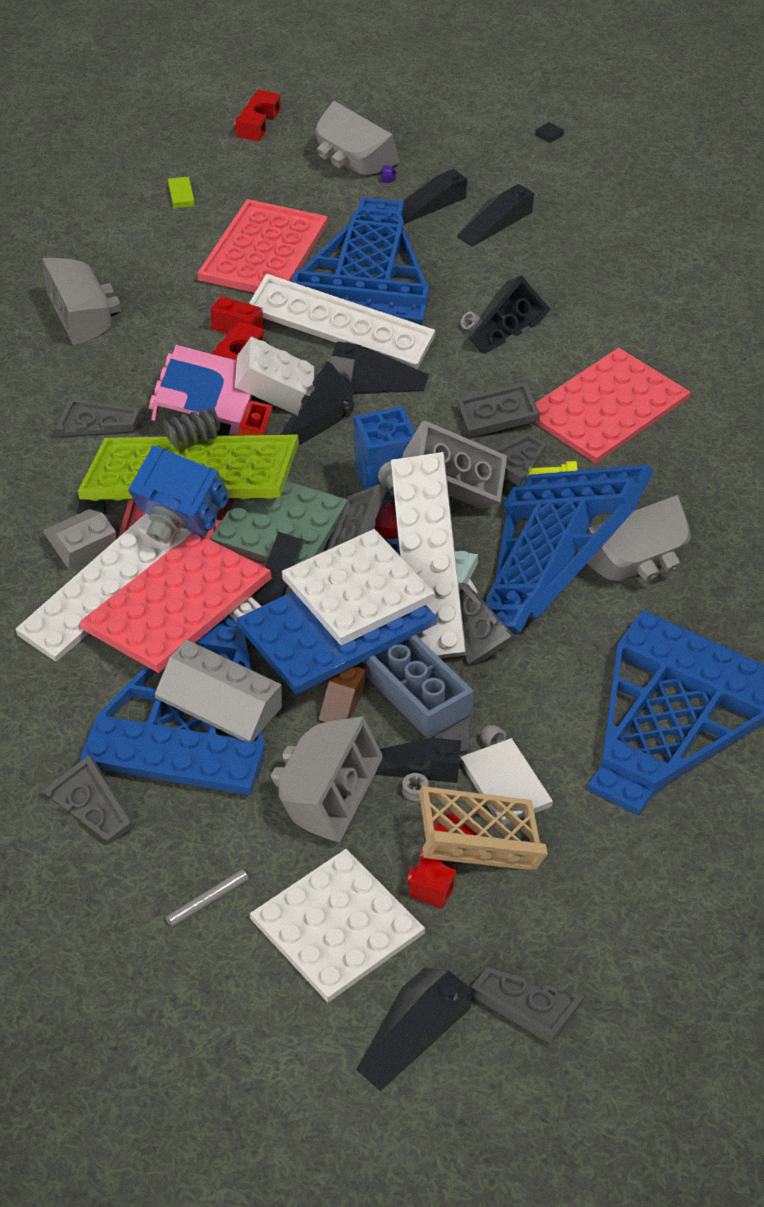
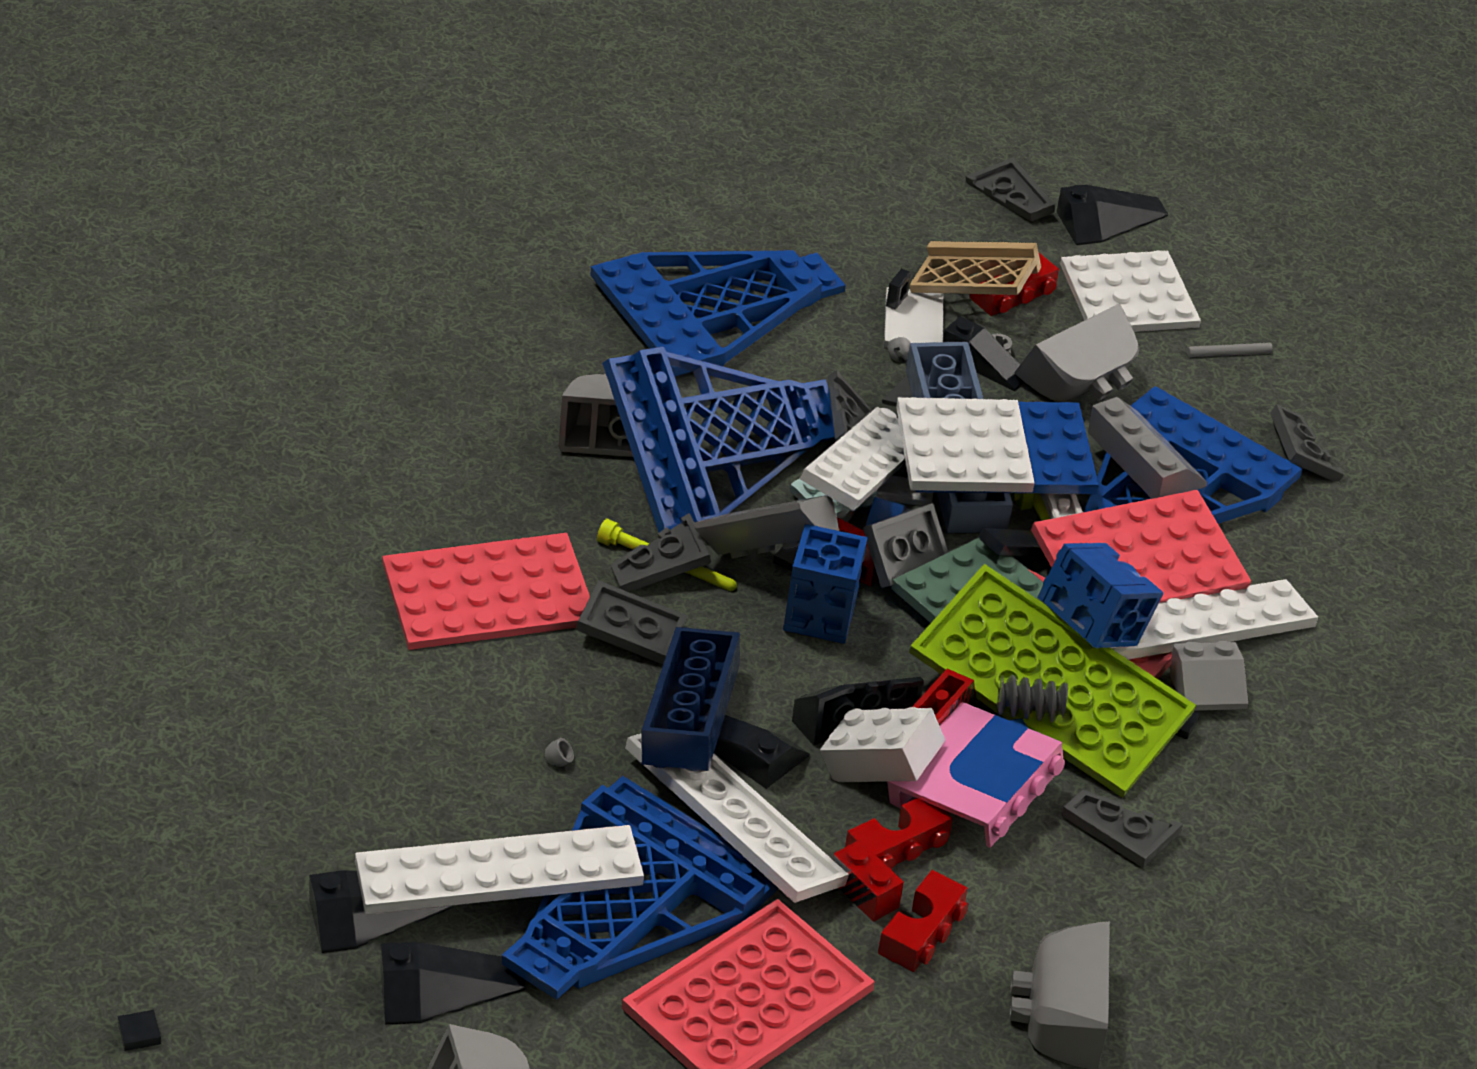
camera: 155 degrees left, 5 degrees down
(187, 314) = (913, 940): none -> red arch
(413, 353) = (690, 699): none -> dark blue brick
(438, 230) = (498, 869): none -> white plate
(509, 311) = (499, 743): black wedge -> none
(534, 780) = (898, 289): none -> black tile

